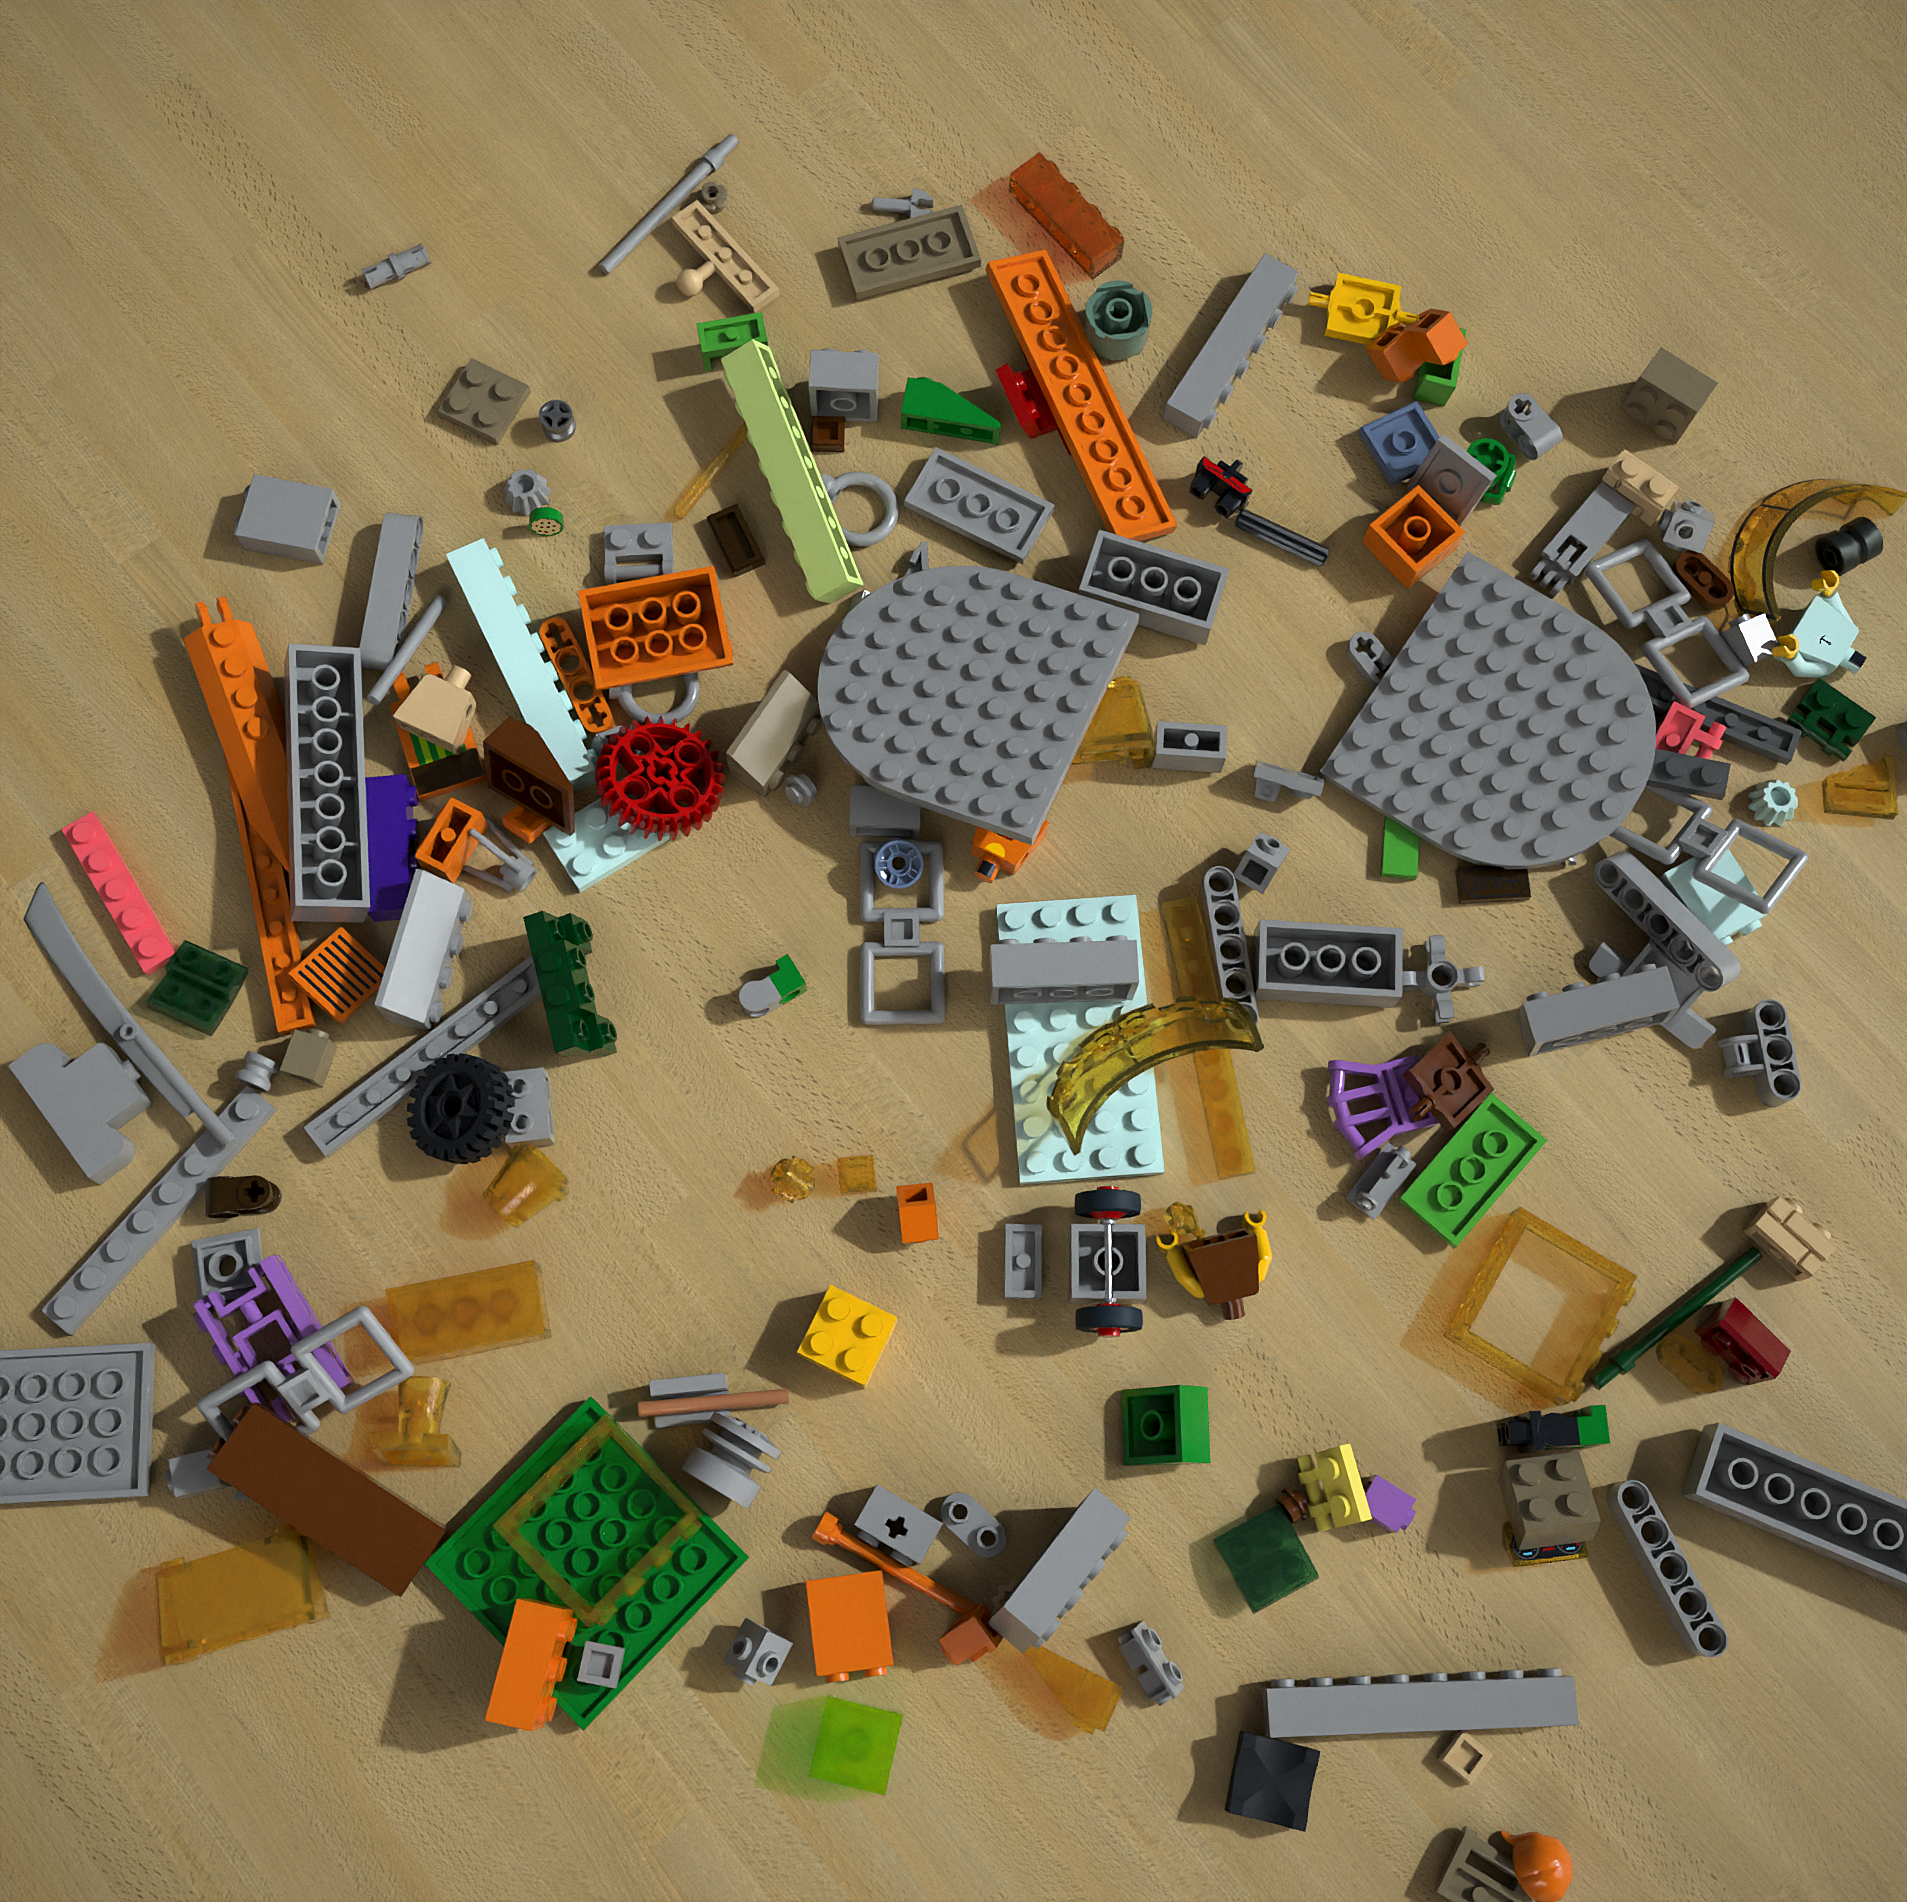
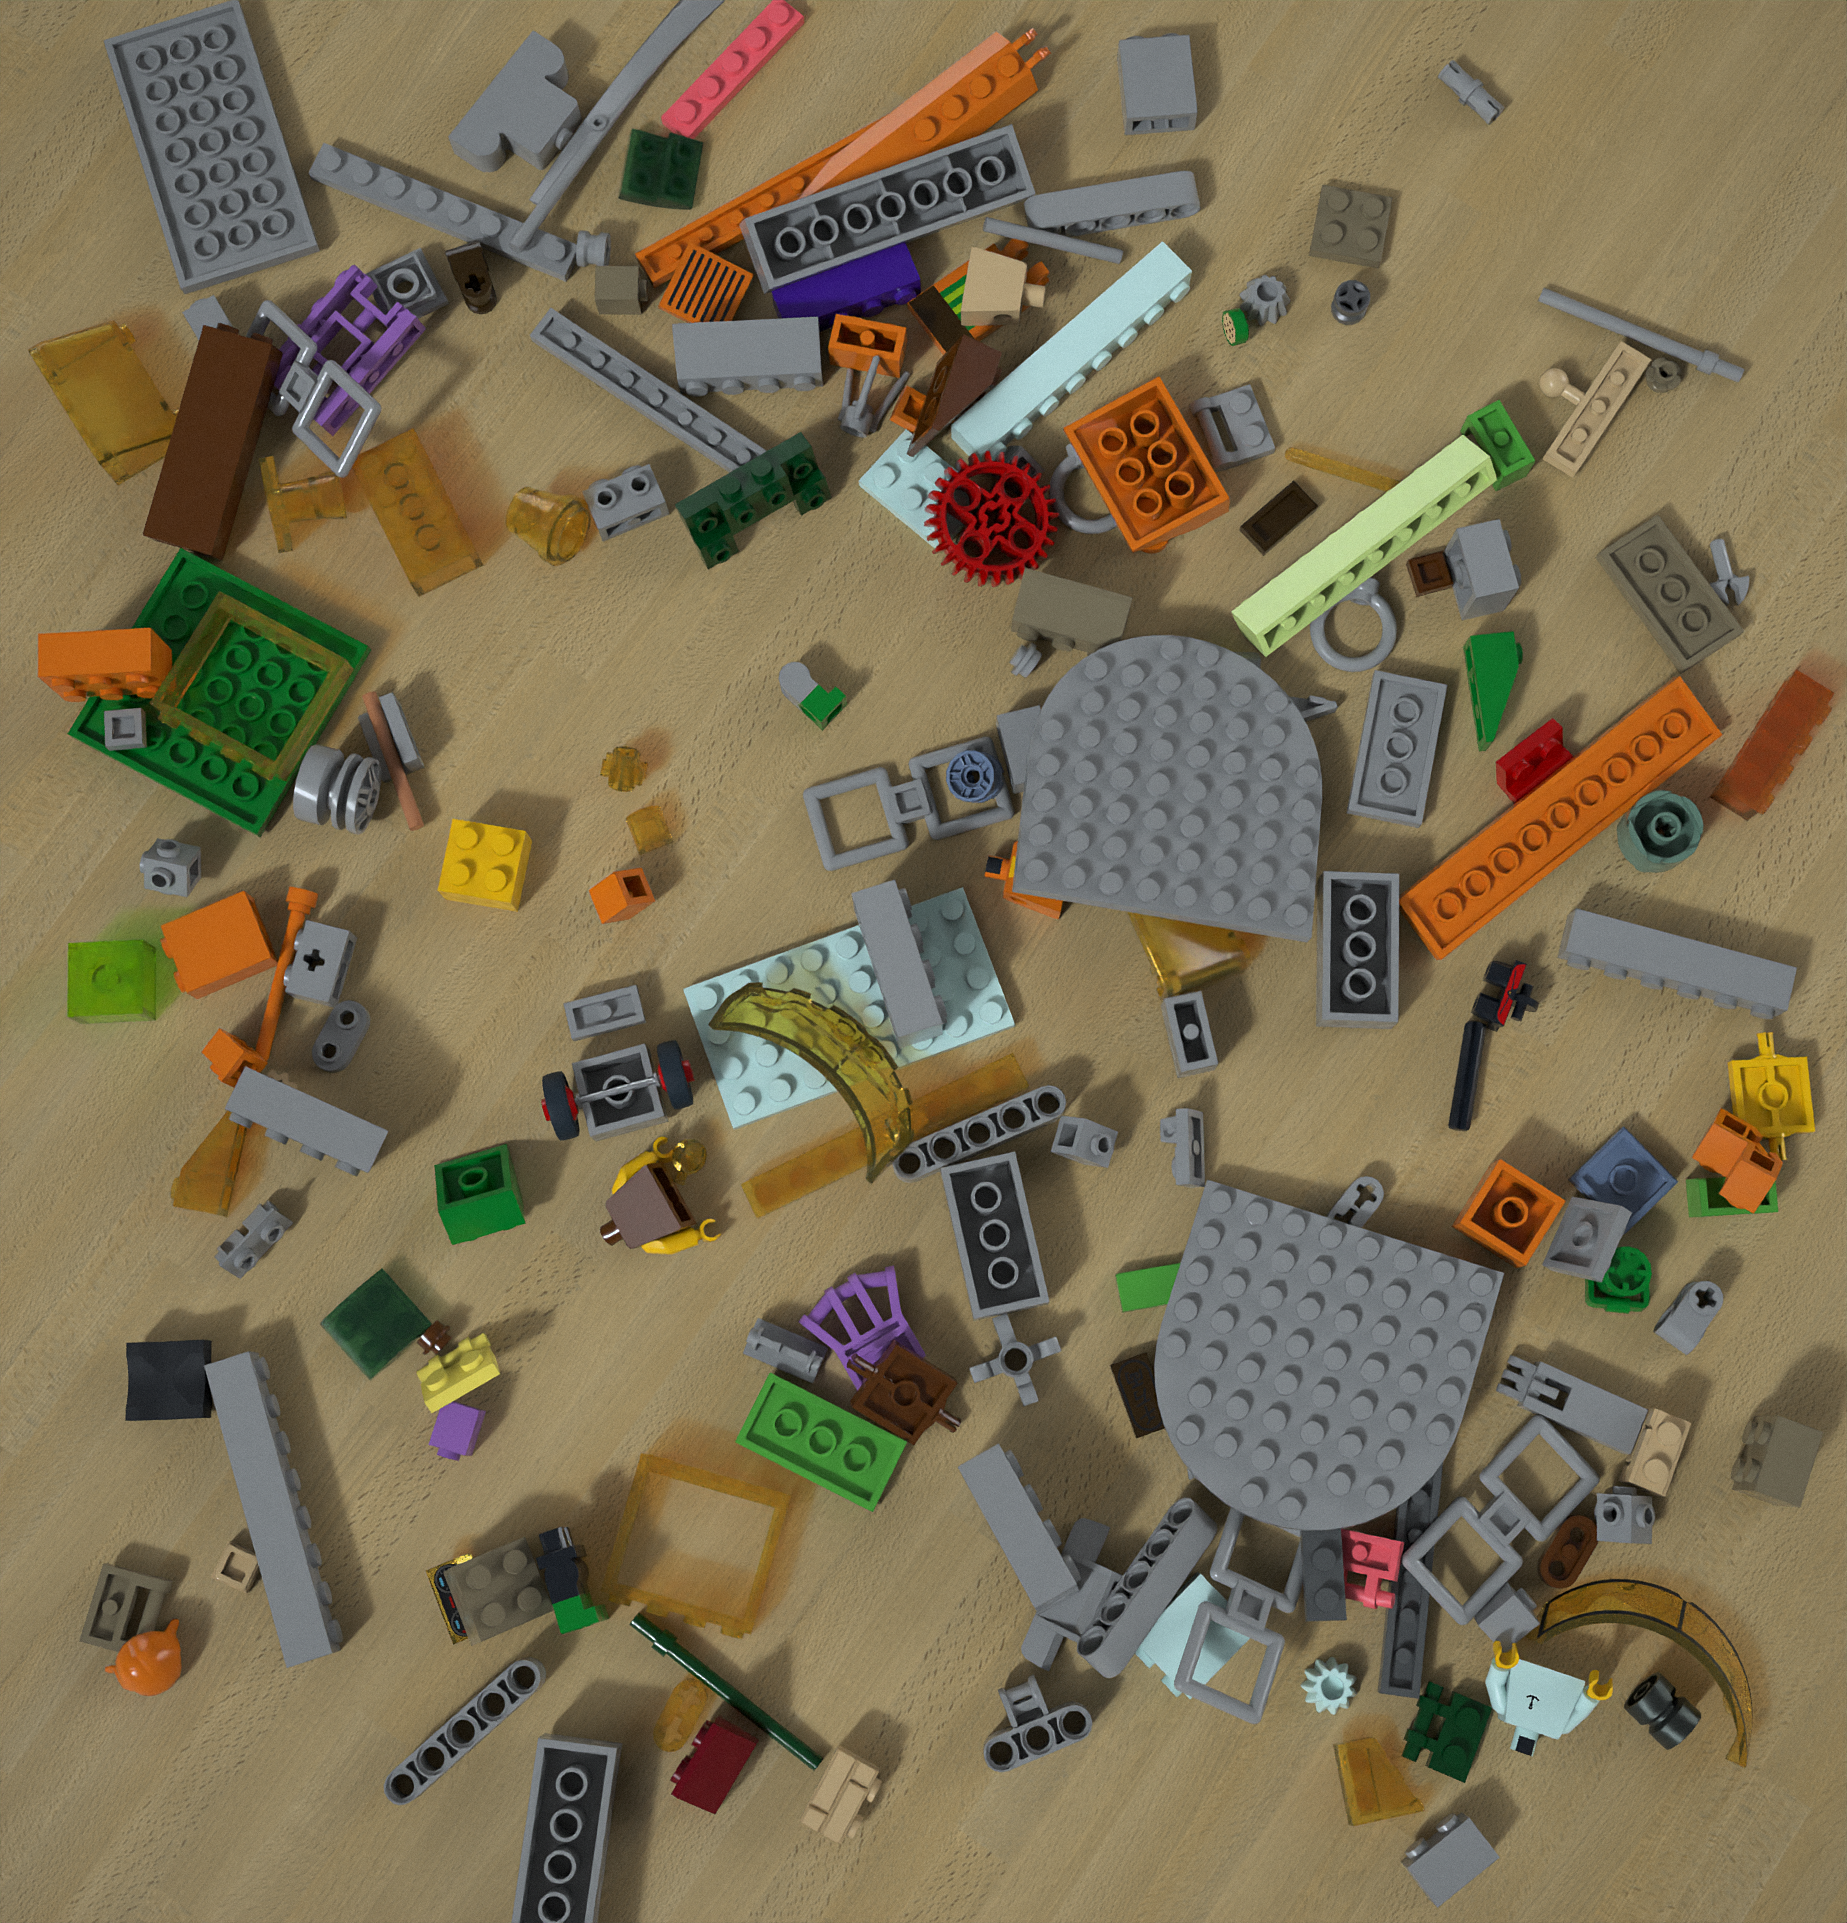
camera: 80 degrees right, 5 degrees up
(460, 1109) = (603, 439): black wheel -> none
(576, 677) = (1077, 408): orange beam -> none

